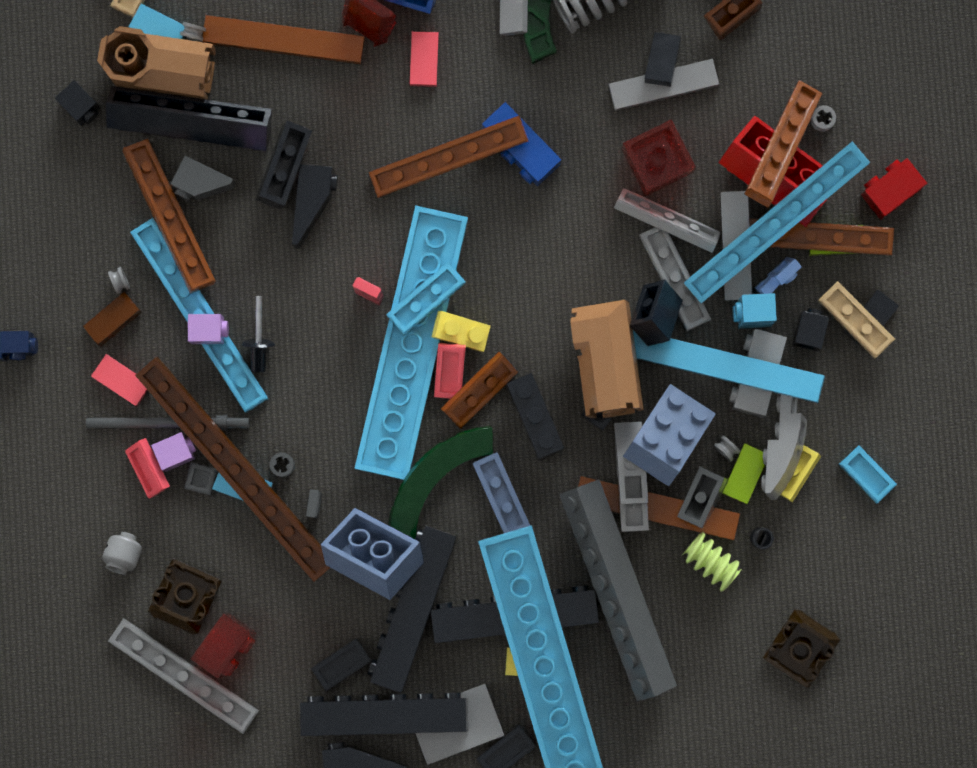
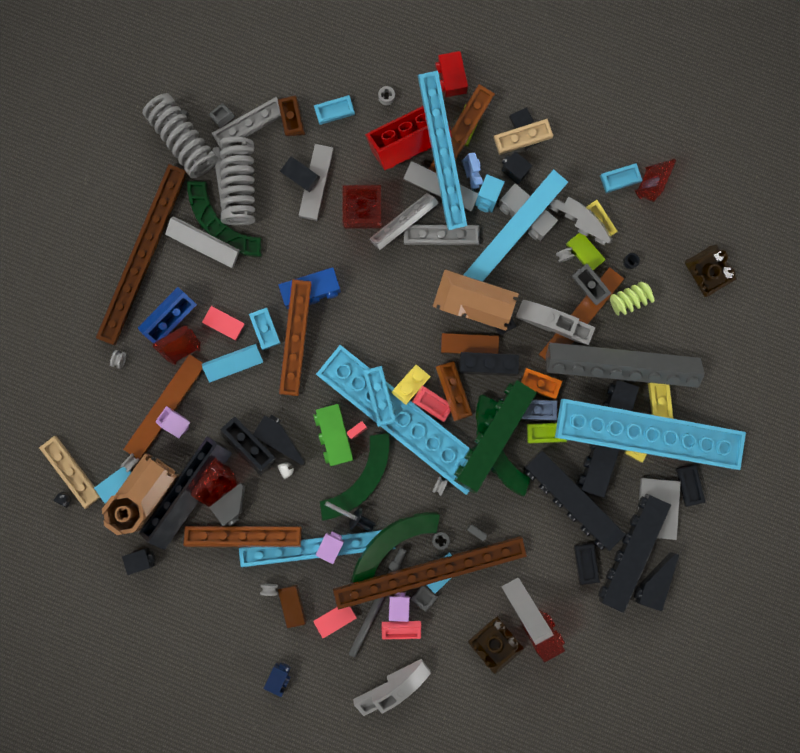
camera: 70 degrees left, 0 degrees up
(69, 495) = (397, 689): none -> light grey slope
(122, 553) = (448, 673): light grey head -> none
(183, 676) = (544, 672): light grey tile -> none
(217, 147) = (214, 483): none -> clear red slope
(244, 608) = (527, 611): none -> light grey tile
(255, 398) = (389, 538): none -> dark green tile
(268, 59) = (173, 422): none -> lavender brick
(275, 226) = (283, 468): none -> white hinge
(312, 336) = (366, 482): none -> dark green tile
(348, 263) = (333, 435): none -> bright green brick
(350, 430) = (440, 486): none -> light grey bush
(372, 553) = (529, 510): sand blue brick -> none
(379, 95) = (232, 363): none -> medium azure tile
(442, 113) = (264, 328): none -> medium azure plate
(444, 466) = (494, 437): none -> dark green brick
(479, 526) = (542, 433): none -> lime tile
(543, 496) = (541, 383): none -> orange plate
(550, 381) = (469, 343): none -> dark orange tile
(596, 661) = (660, 400): none -> light yellow plate
(656, 313) = (460, 255): black brick -> none
(669, 435) = (542, 285): sand blue brick -> none
(770, 61) = (334, 110): none -> medium azure tile
(783, 144) = (394, 123): dark orange tile -> none
(883, 517) = (655, 180): none -> clear red slope

